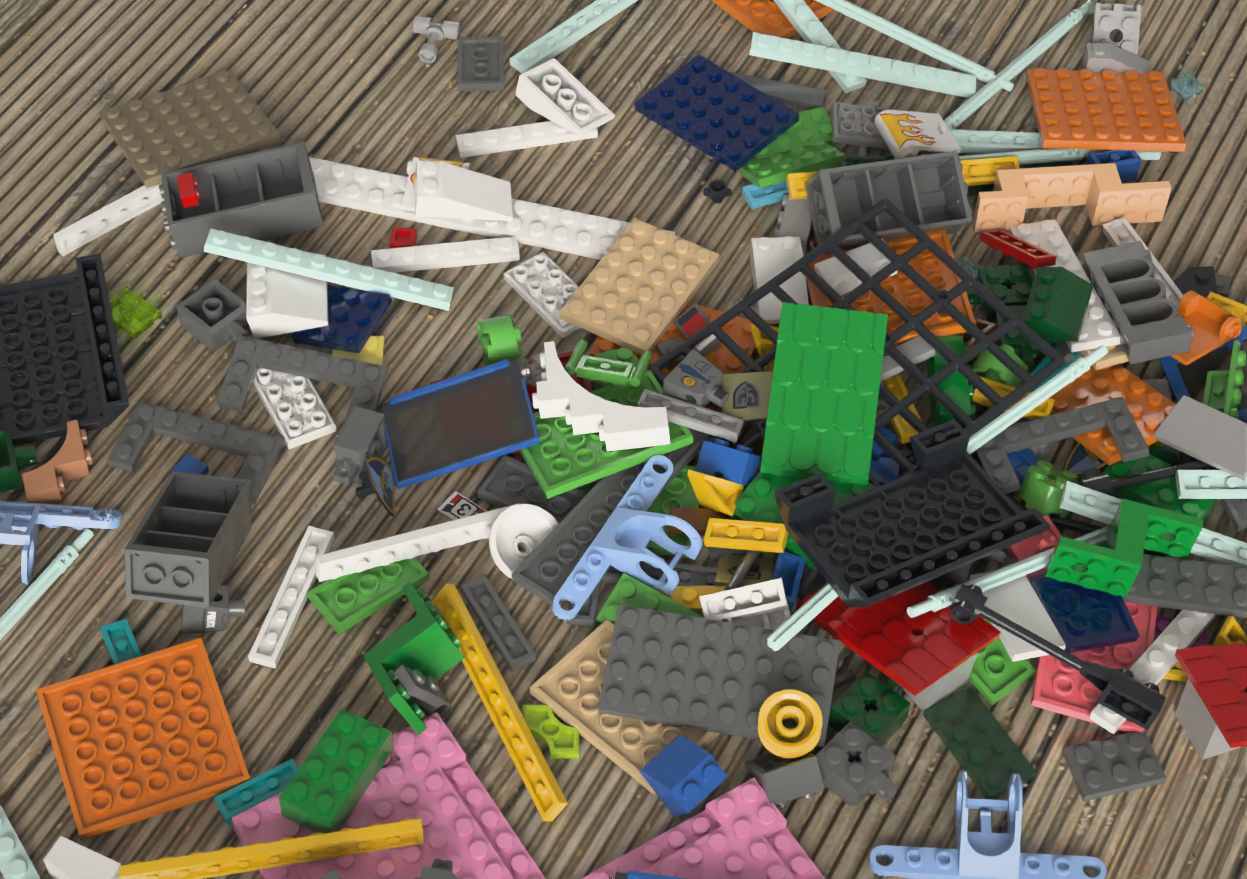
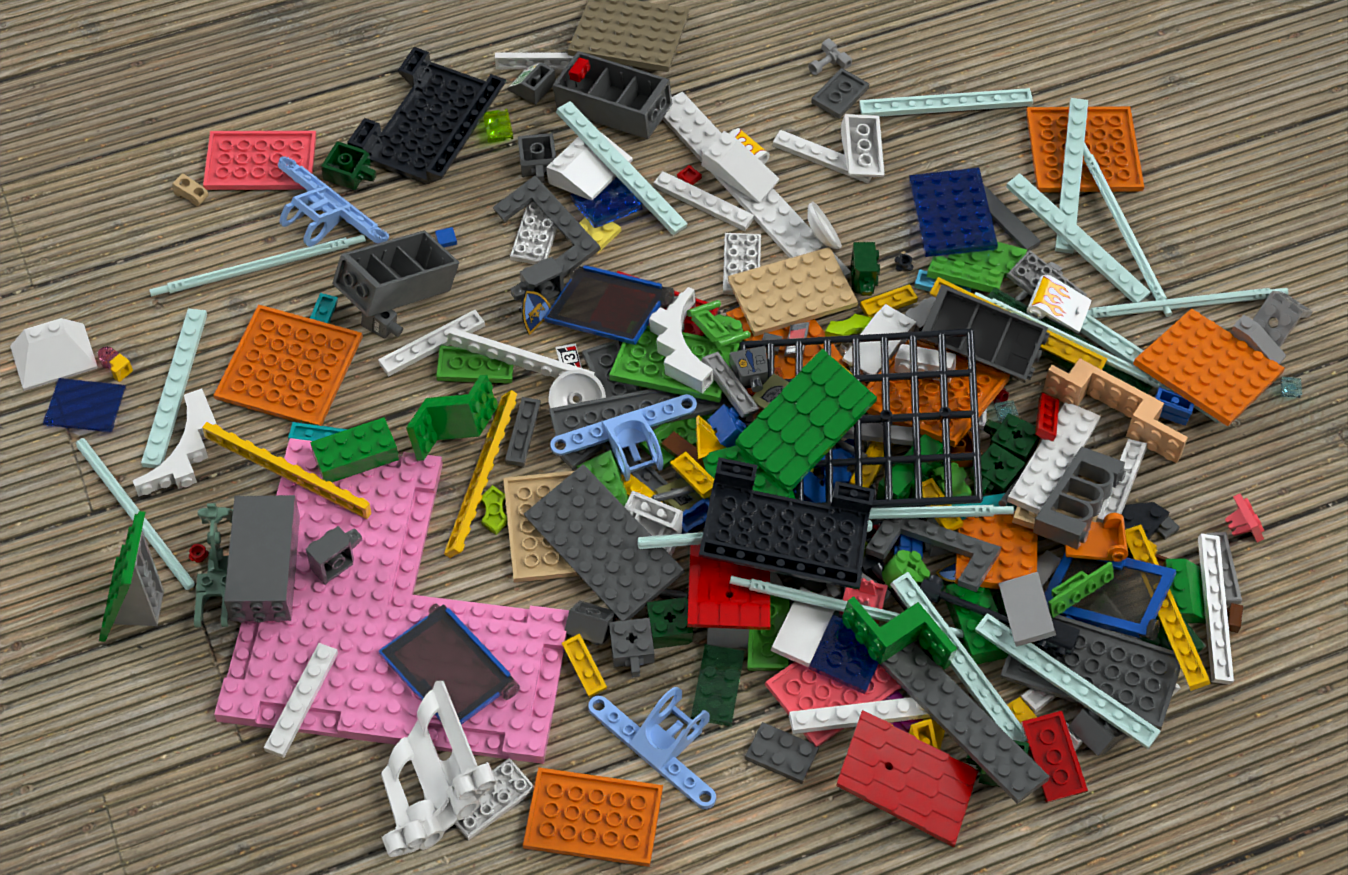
camera: 40 degrees right, 5 degrees up
(71, 462) = (391, 191): nougat arch -> none
(127, 241) = (533, 82): none -> dark grey slope
(259, 448) = (493, 247): dark grey plate -> none
(425, 690) = (440, 438): dark grey plate -> none
(499, 339) = (676, 271): bright green brick -> none
(608, 201) = (821, 227): none -> white dish
(683, 775) = (532, 580): blue slope -> none
(692, 216) = (864, 268): none -> dark green hinge
(732, 284) = (853, 325): none -> lime tile
(739, 242) = (896, 299): none -> yellow plate
(784, 741) = (613, 604): yellow wheel -> none
(829, 826) = (584, 665): none -> yellow plate
(1057, 304) = (1020, 465): dark green slope -> none
(1118, 688) = (810, 708): black bar -> none

